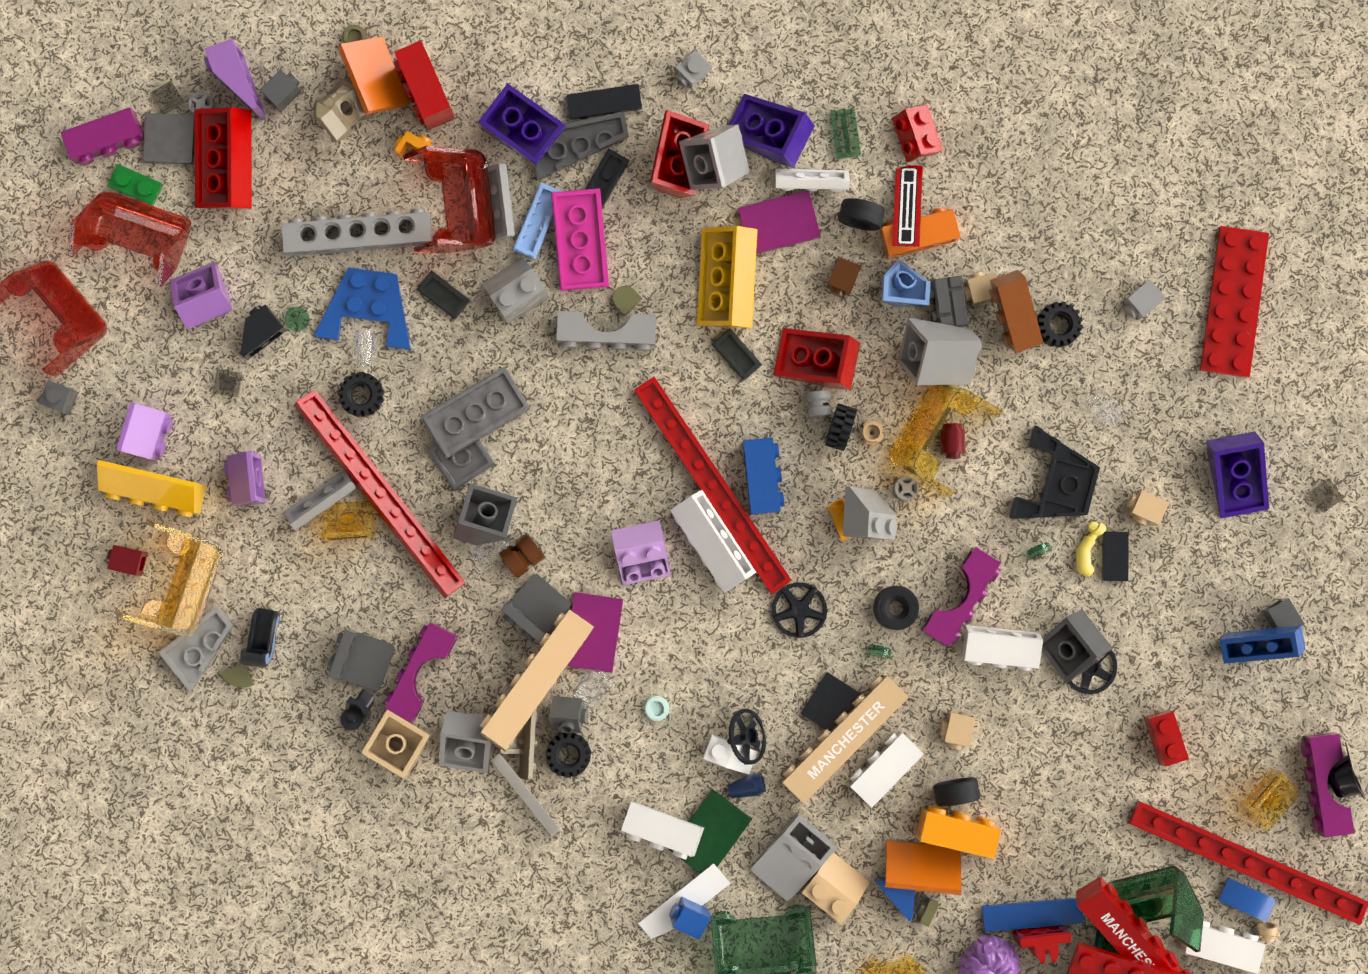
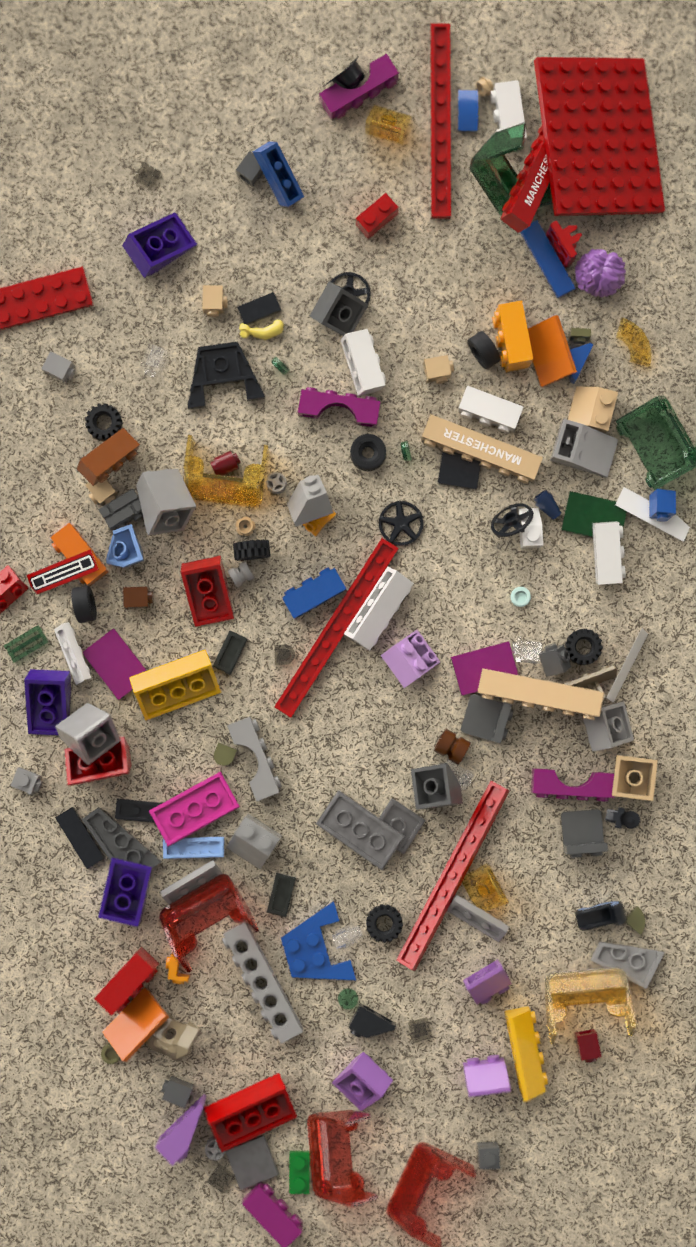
camera: 115 degrees left, 0 degrees up
(708, 413) = (284, 654): none -> clear smoke tile

